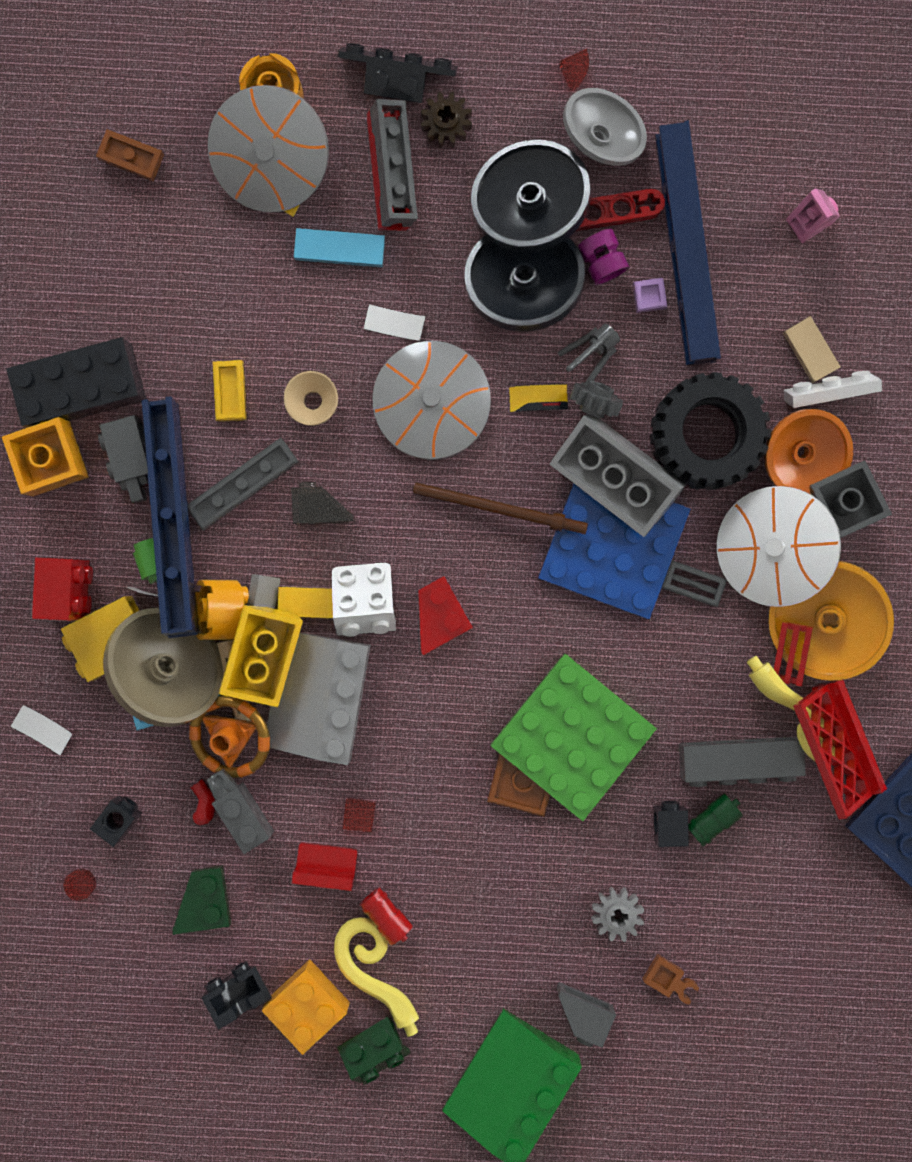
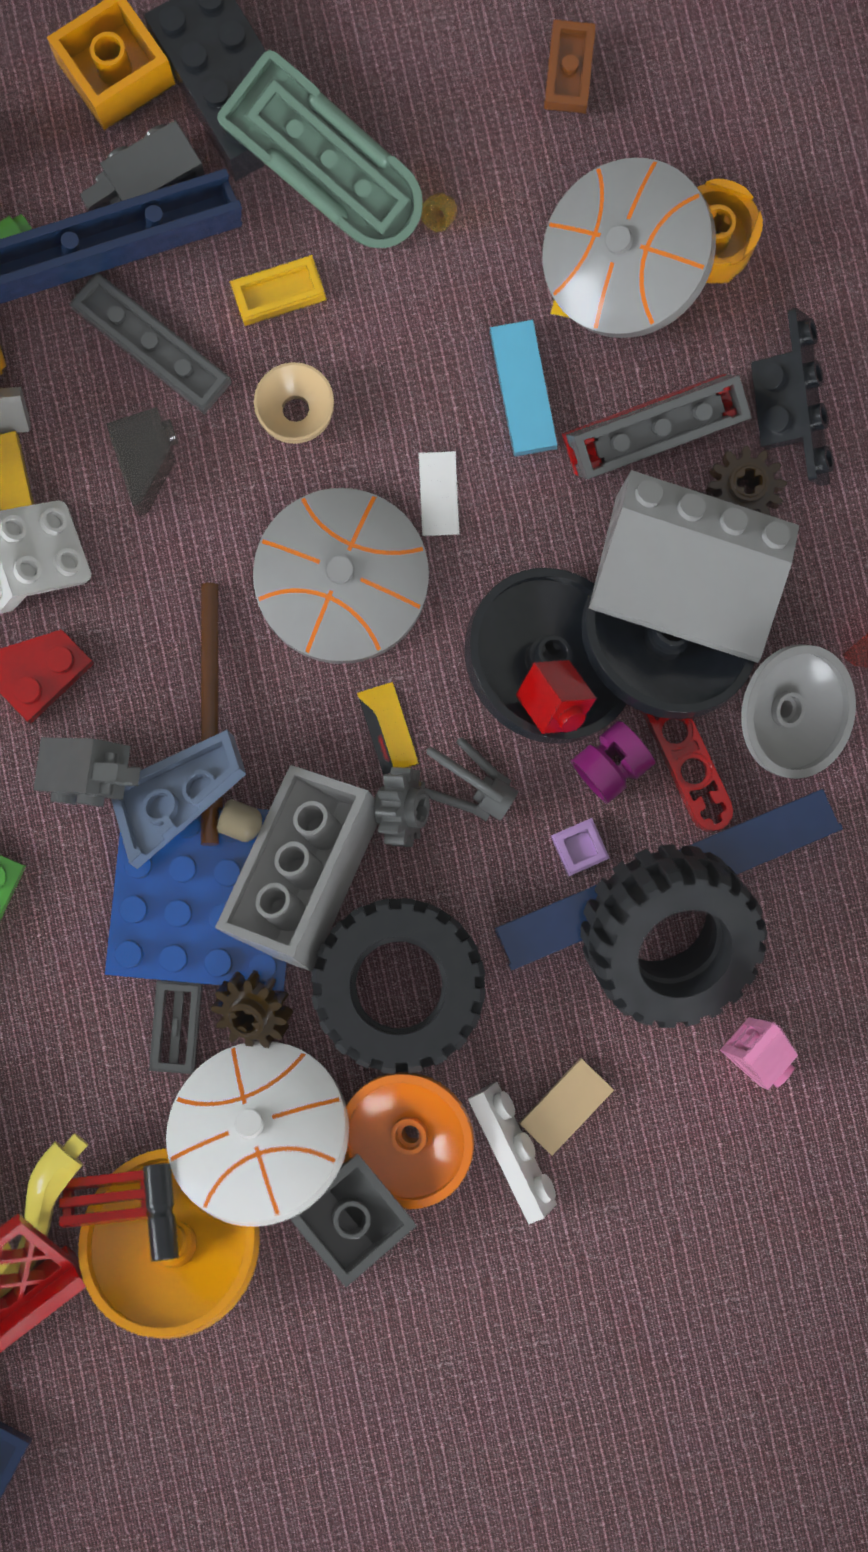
camera: 70 degrees right, 5 degrees down
(150, 332) = (323, 154): none -> sand green piece
(209, 276) = (432, 208): none -> clear yellow hinge
(492, 166) = (693, 566): none -> light grey slope
(518, 595) = (84, 770): none -> dark grey hinge
(549, 542) = (175, 794): none -> sand blue wing
(556, 277) = (555, 696): none -> red brick
(578, 505) = (239, 821): none -> dark tan piece
(698, 530) = (252, 1009): none -> dark brown gear
(757, 239) = (706, 972): none -> black tyre
(817, 619) = (160, 1206): none -> black piece

